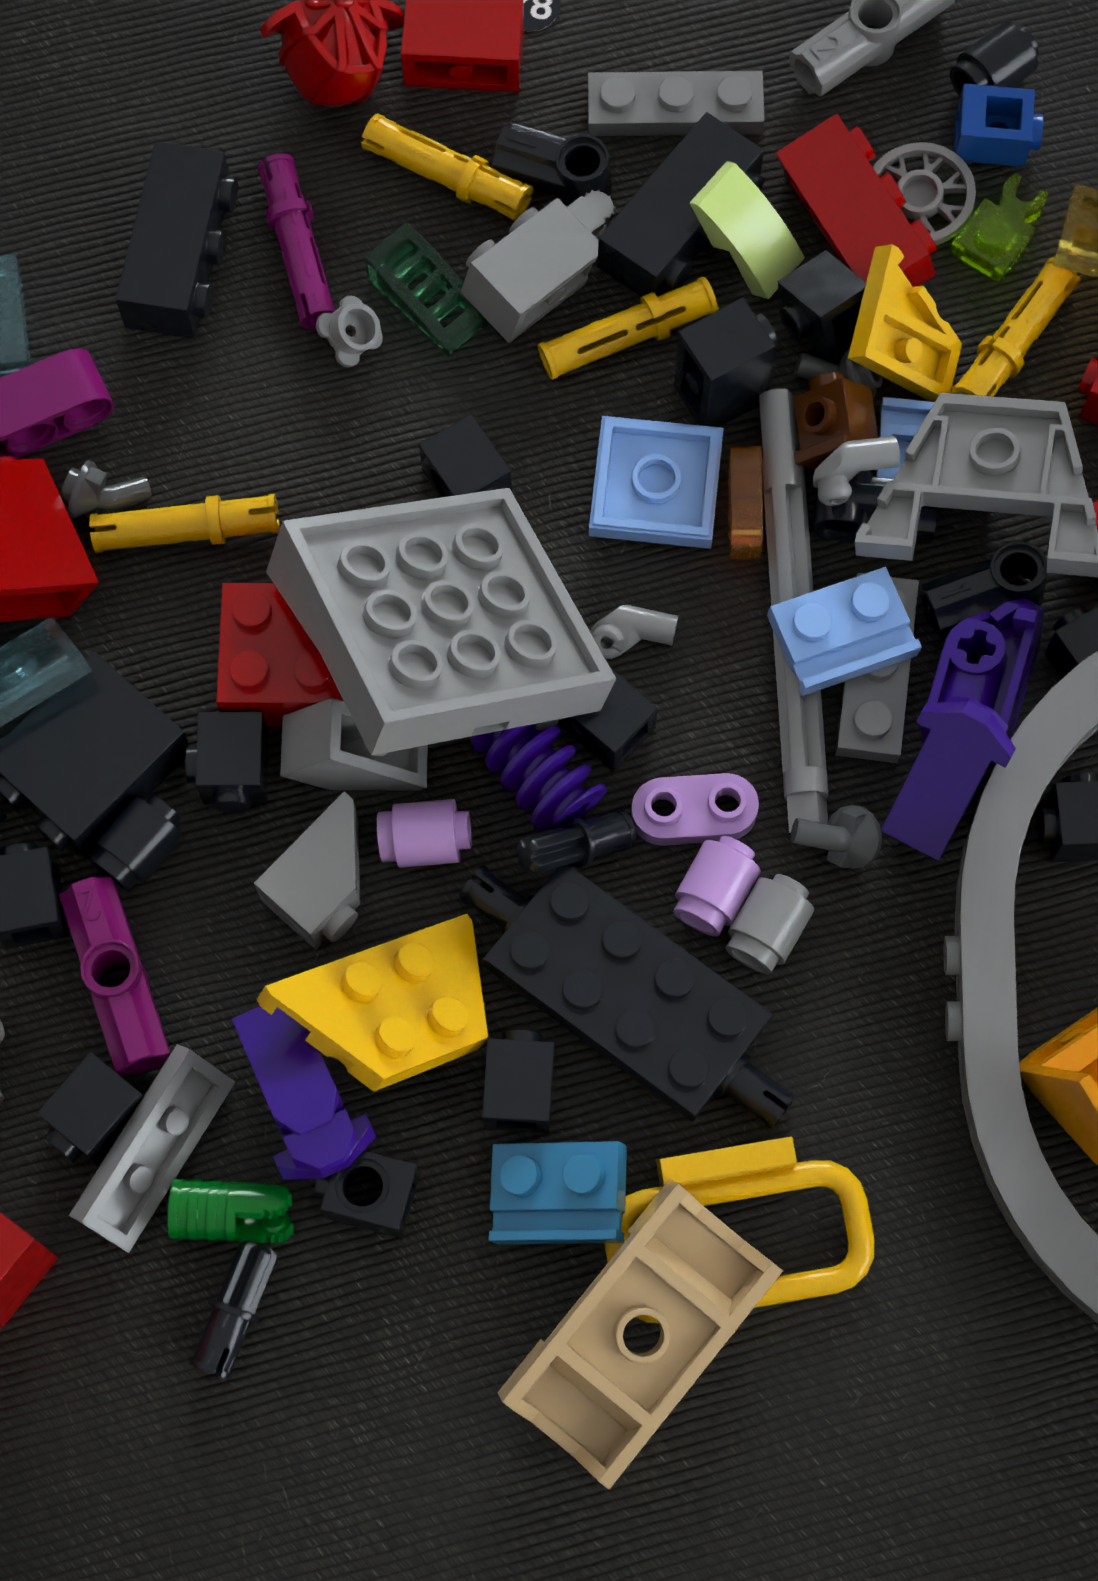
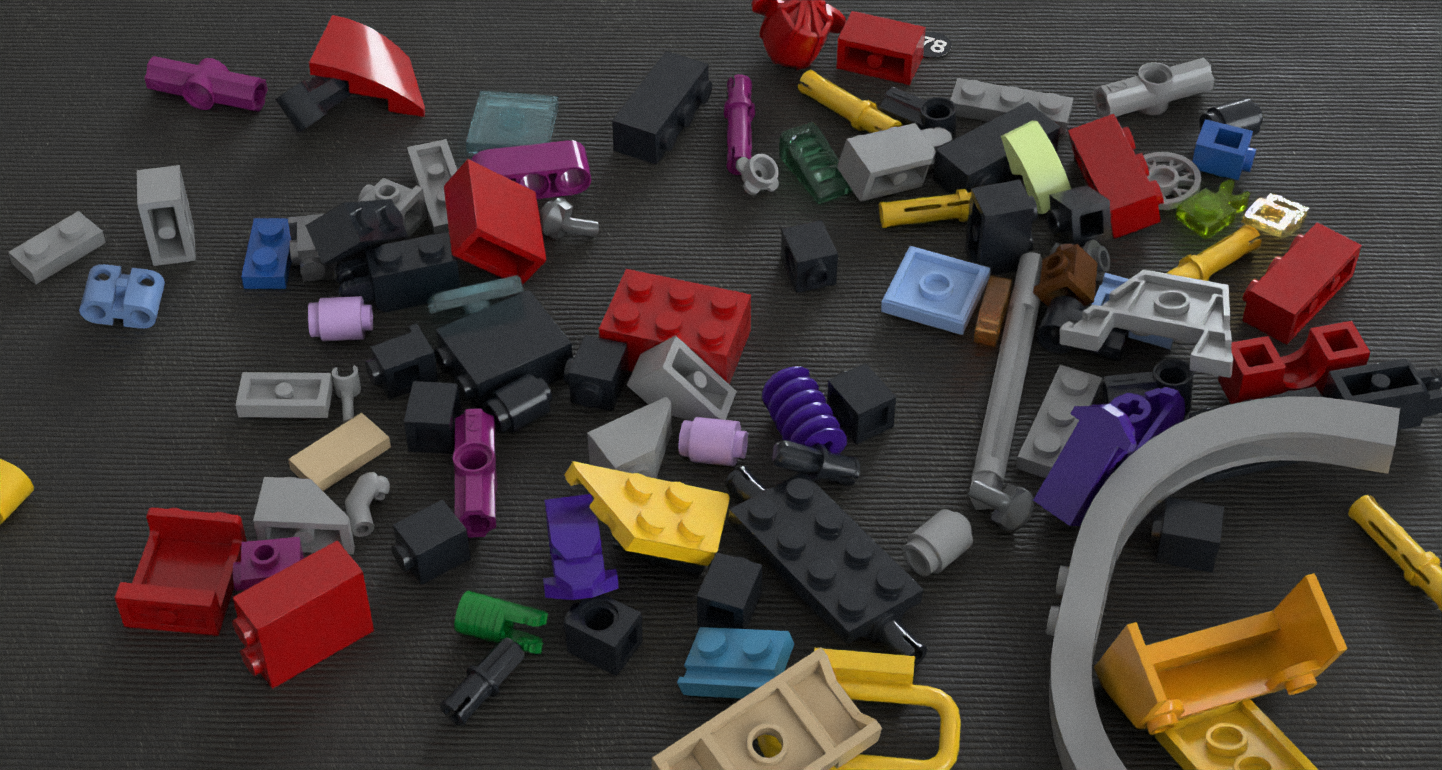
camera: 15 degrees right, 25 degrees down
(152, 1148) = (468, 566): light grey plate -> none
(185, 523) = (630, 249): yellow pin -> none
(439, 619) = (763, 303): light grey piece -> none
(630, 625) = (891, 363): light grey arm -> none
(695, 812) = (906, 473): lavender plate -> none
(716, 885) = (905, 512): lavender brick -> none
(843, 631) = (1038, 384): light blue plate -> none
(847, 461) = (1067, 287): light grey arm -> none
(902, 331) = (1126, 233): yellow wing -> none

